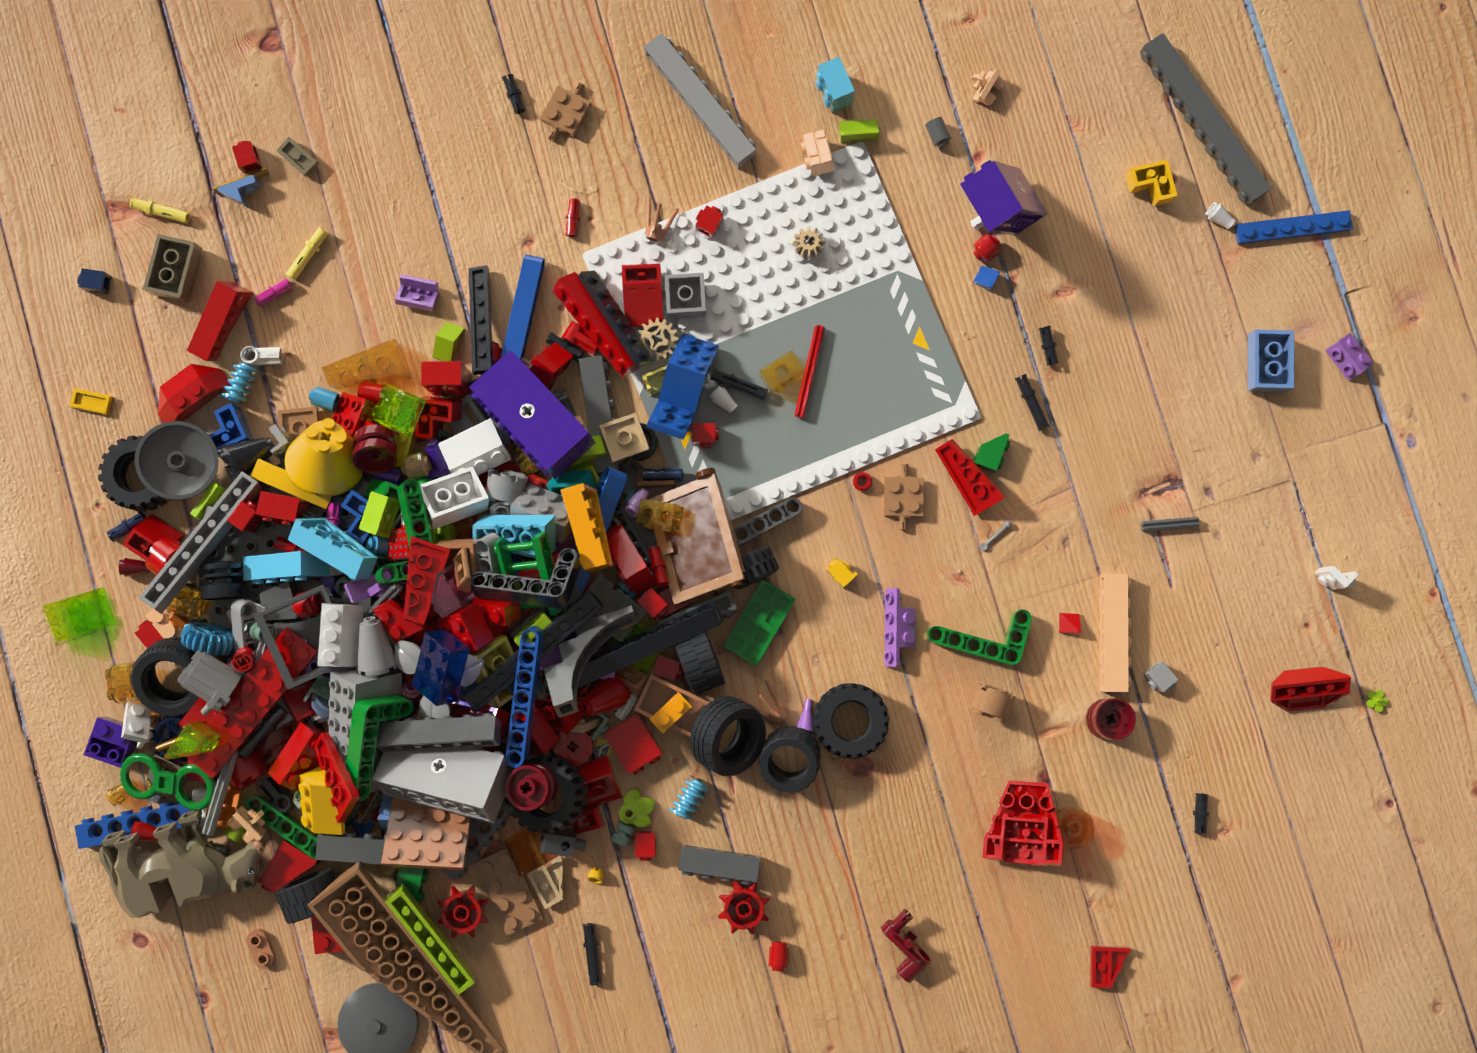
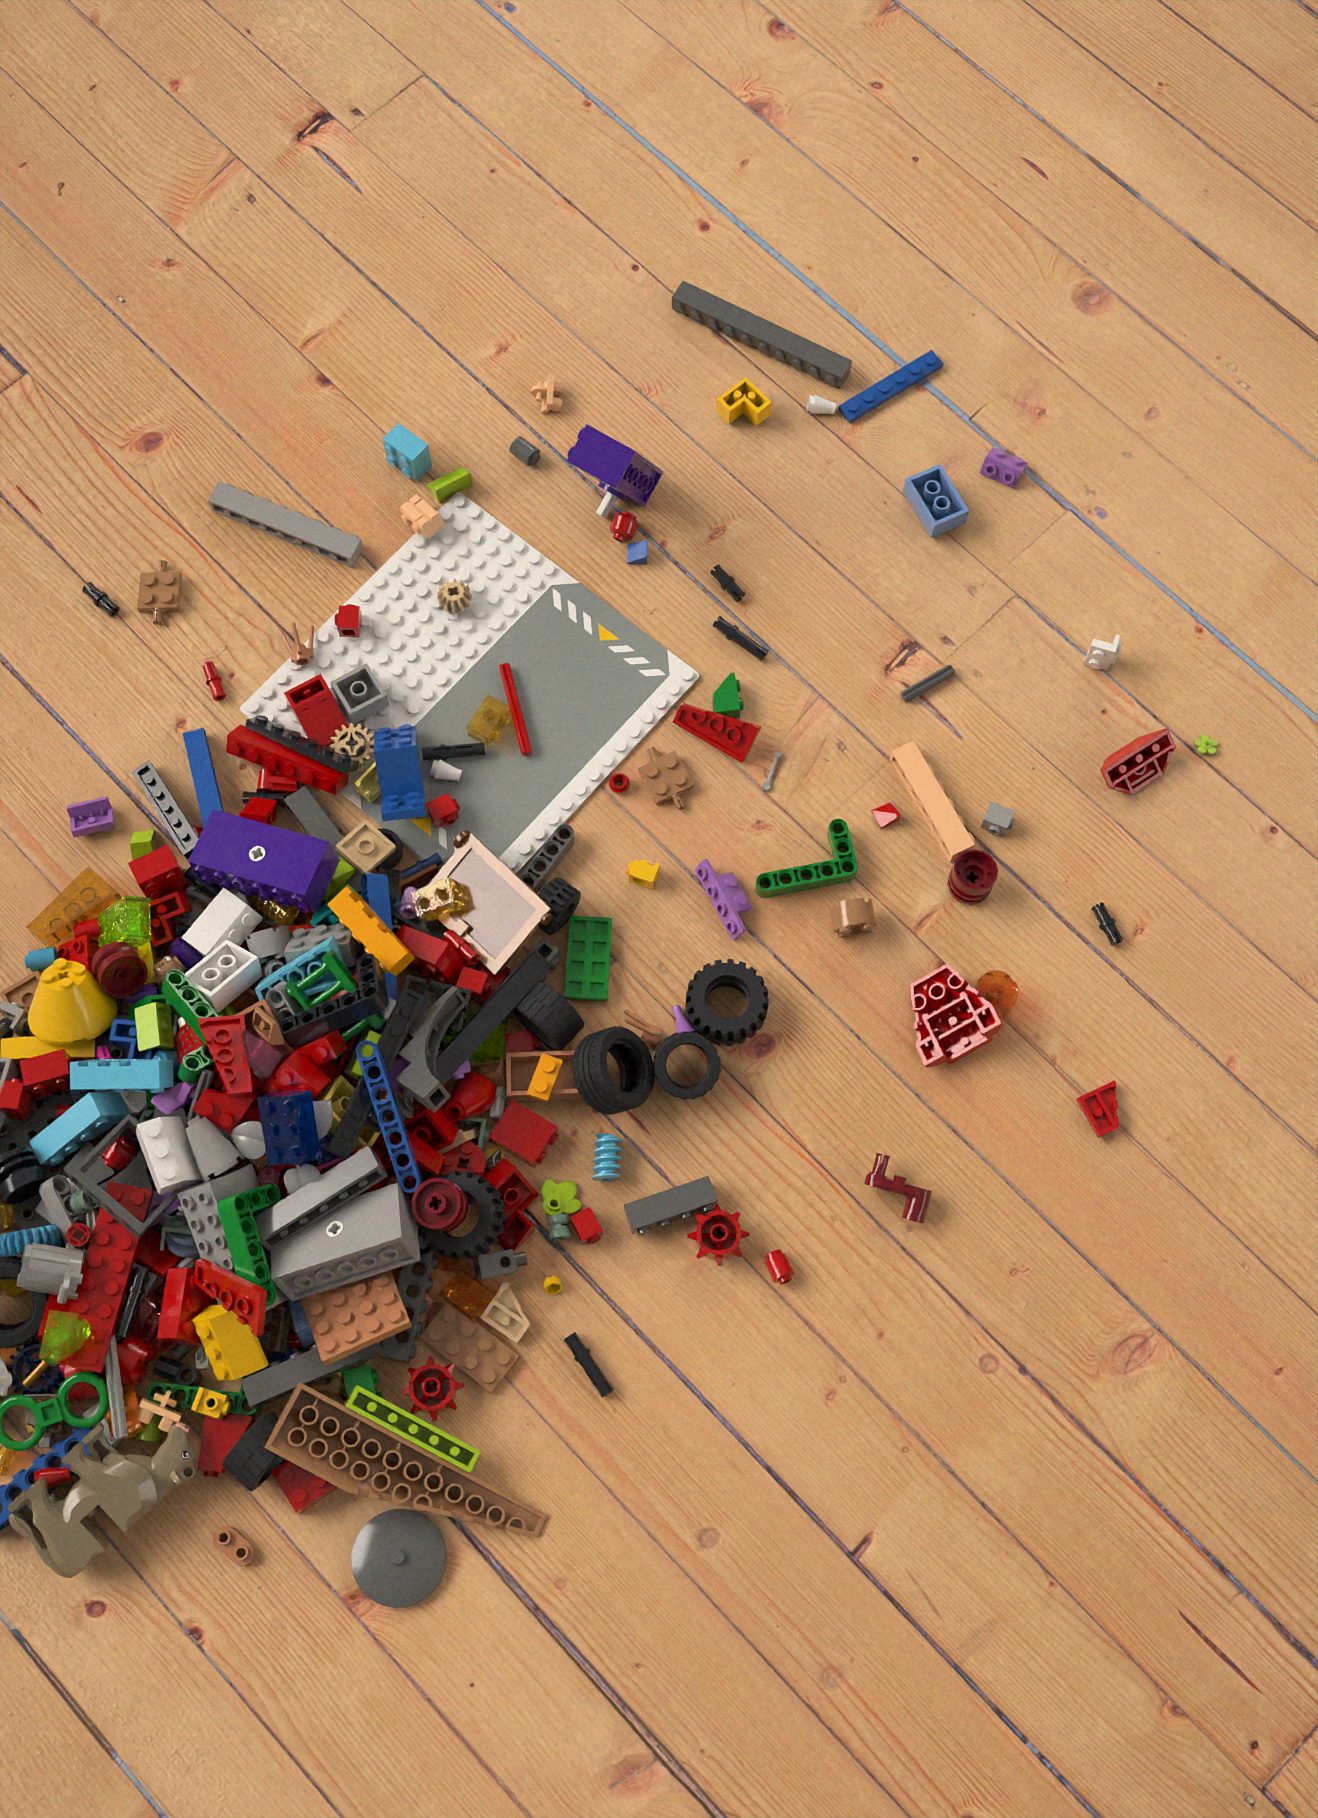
camera: 30 degrees left, 15 degrees down
(292, 832) = (202, 1400): none -> yellow brick

